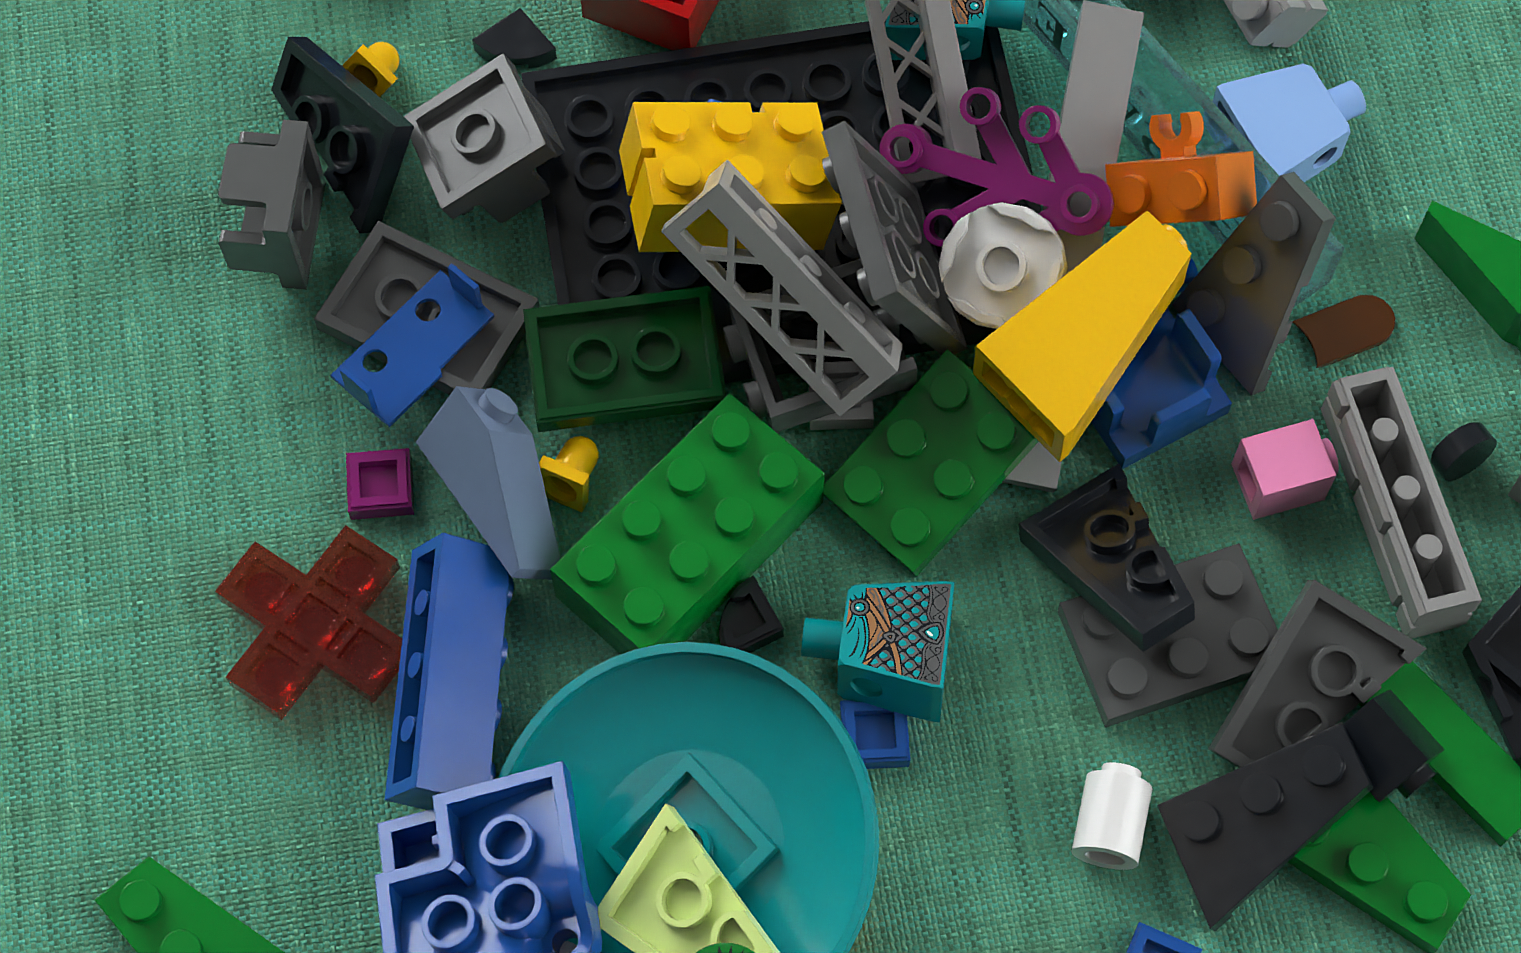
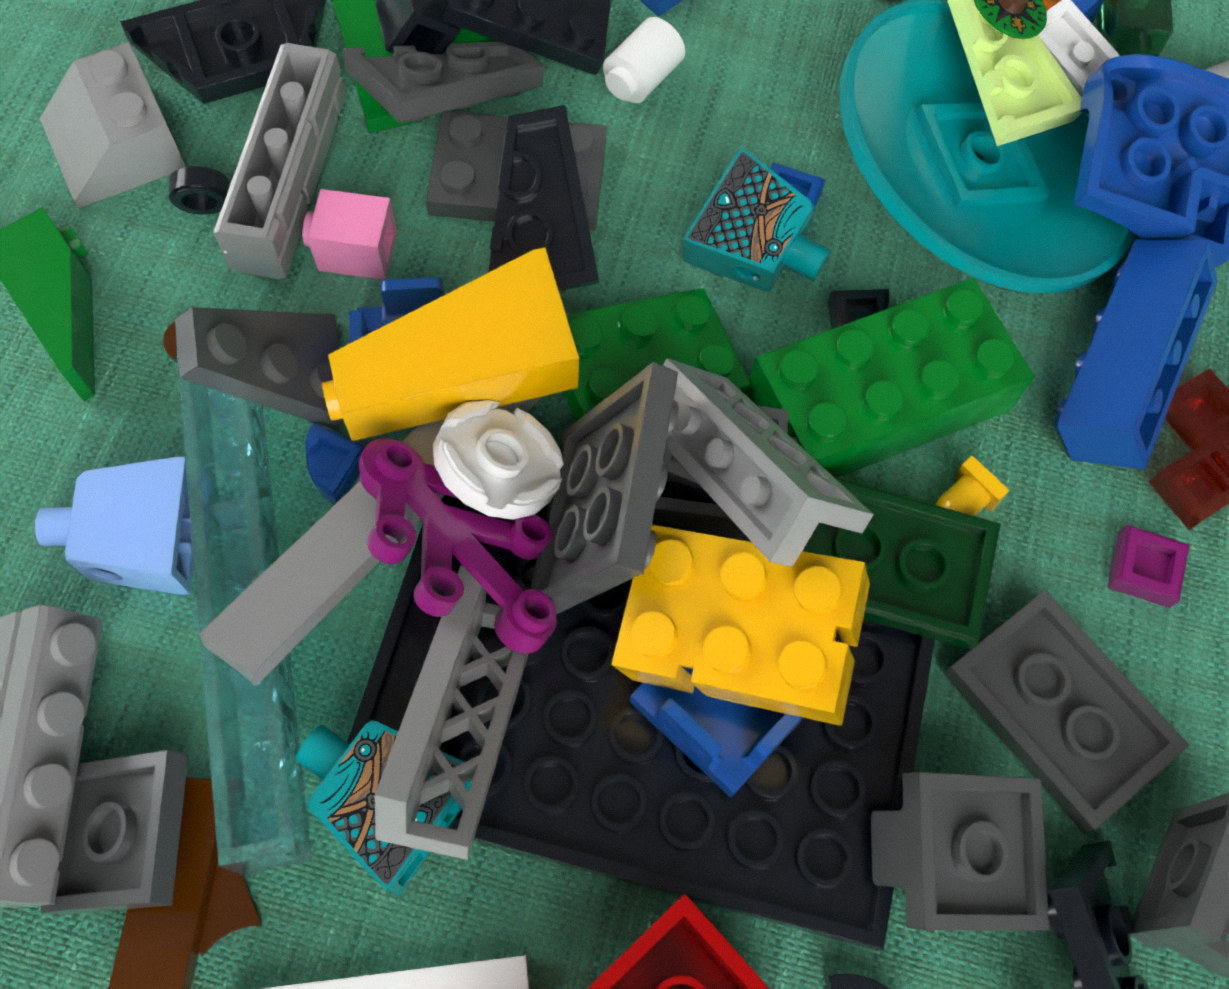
camera: 160 degrees left, 0 degrees up
(415, 347) = (1095, 660): blue piece -> none
(495, 476) = (1054, 487): sand blue slope -> none
(1181, 183) = (285, 449): orange brick -> none

